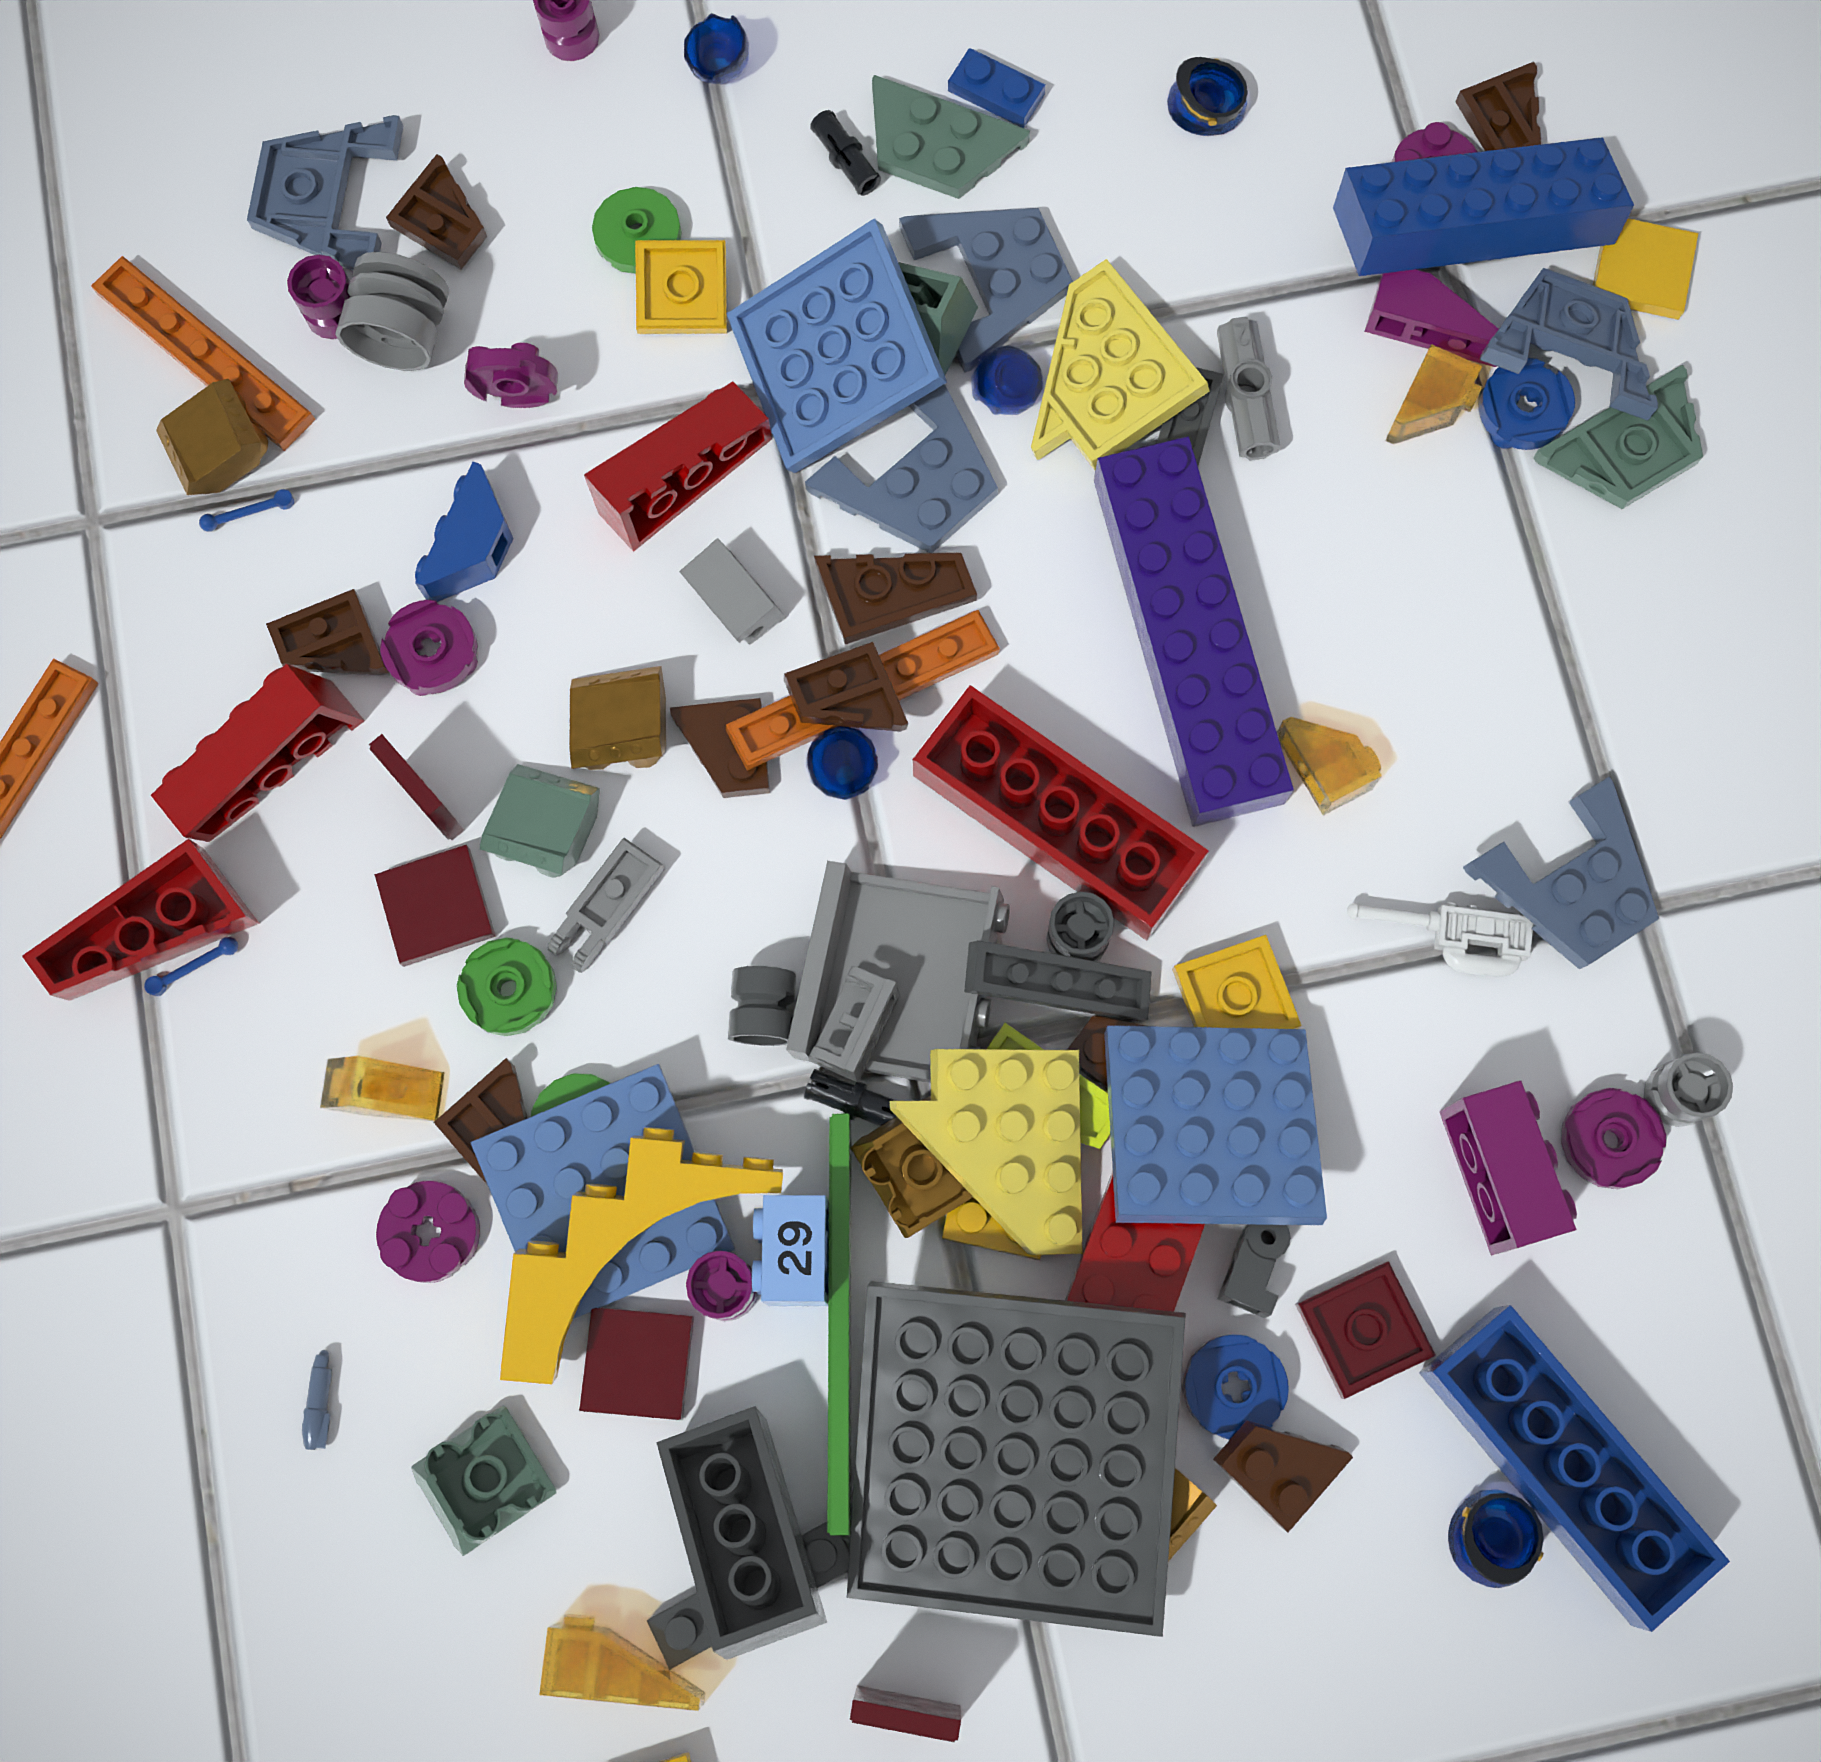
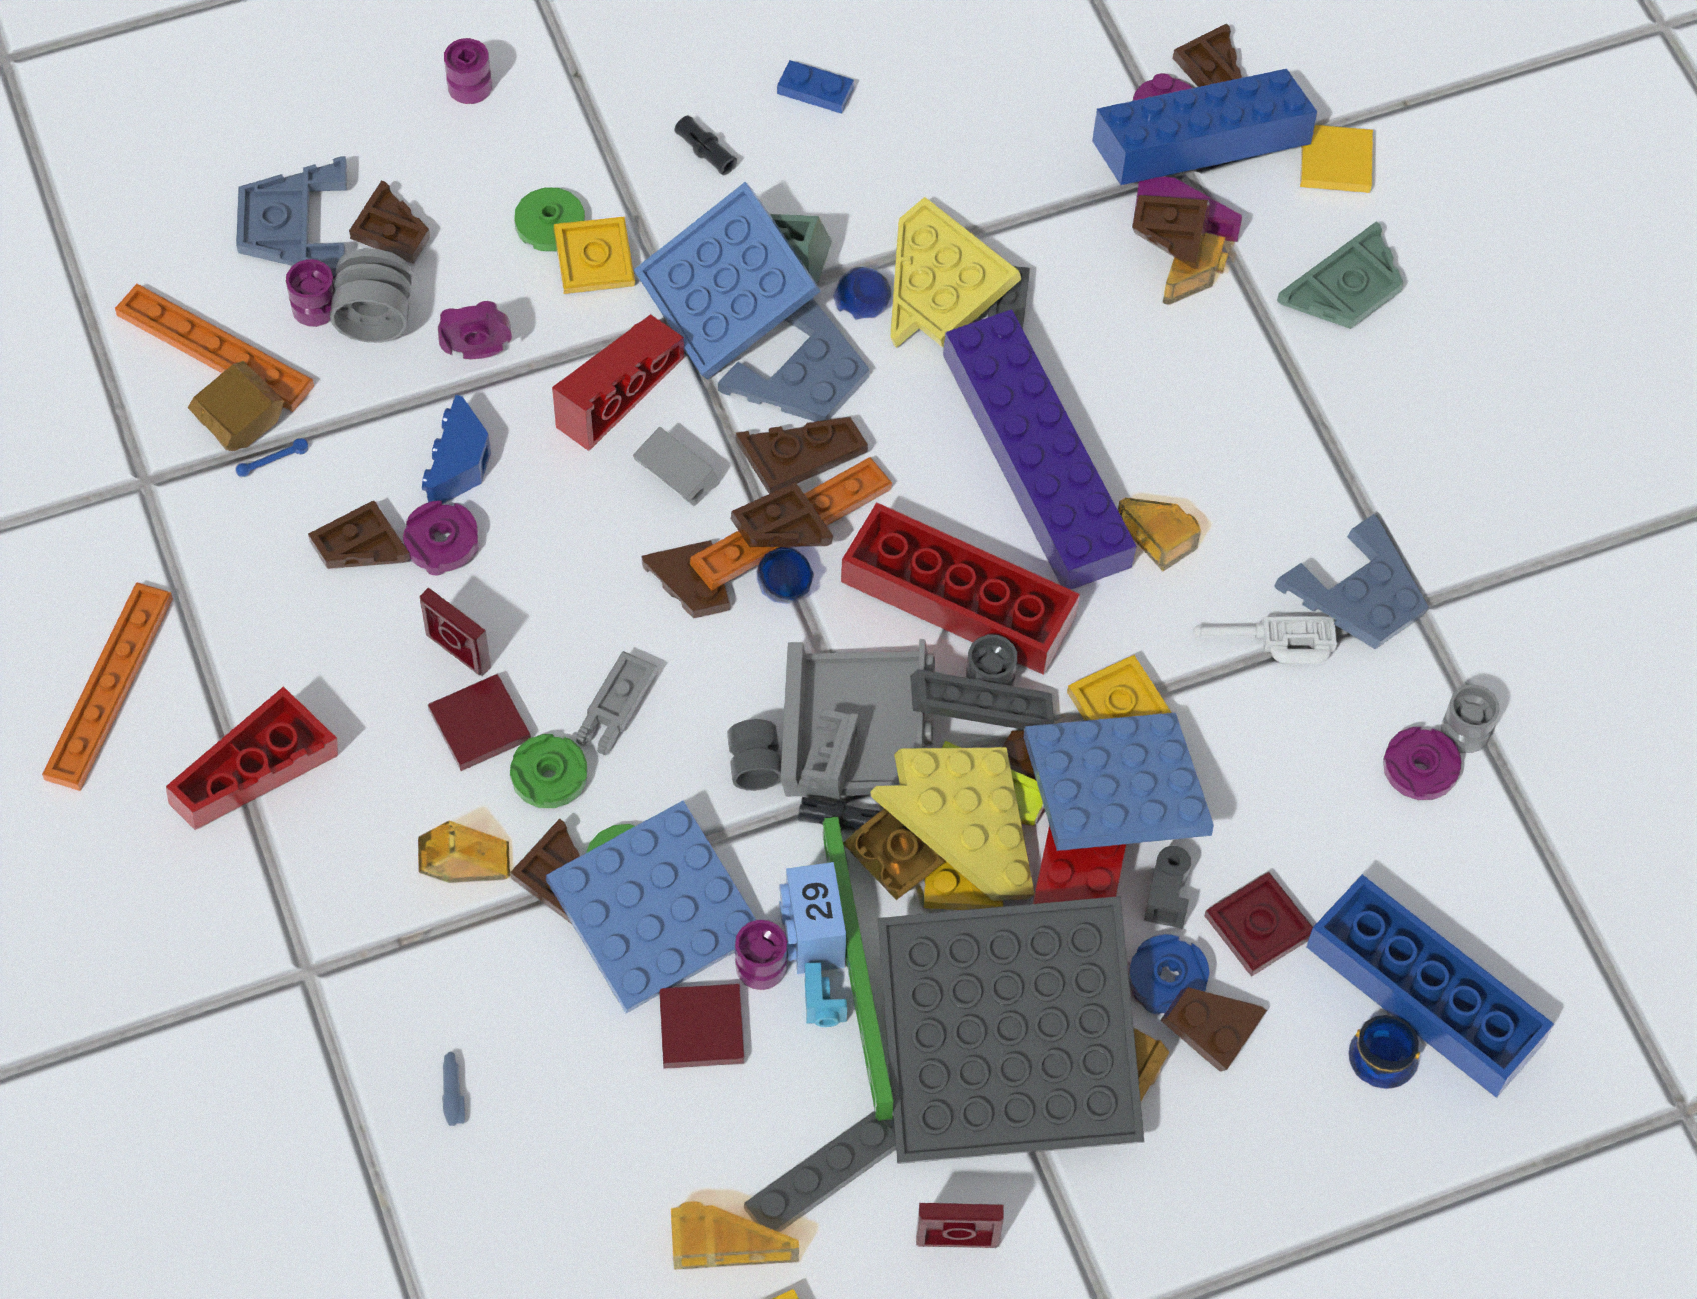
camera: 15 degrees left, 15 degrees down
(157, 986) = (263, 810): blue hinge -> none
(254, 751) = (317, 623): red wedge -> none
(406, 1211) = (511, 934): magenta plate -> none
(482, 1480) = (594, 1124): sand green slope -> none
(541, 820) = (553, 650): sand green slope -> none
(551, 1283) = (662, 913): yellow arch -> none
(618, 719) = (601, 570): pearl gold slope -> none
(716, 49) = (591, 81): clear blue hair -> none
(740, 1533) = (810, 1116): dark grey brick -> none
(785, 1344) = (819, 1006): none -> medium azure bracket
(937, 139) = (775, 128): sand green wing -> none
(1010, 264) = (850, 209): sand blue wing -> none
(1207, 97) = (981, 75): clear blue piece -> none
(1251, 411) = (1050, 276): light grey piece -> none
(1417, 343) = (1173, 225): none -> reddish brown wing
(1508, 1168) = (1344, 786): magenta brick -> none
(1522, 429) = (1259, 280): blue plate -> none
(1581, 324) = (1294, 201): sand blue wing -> none

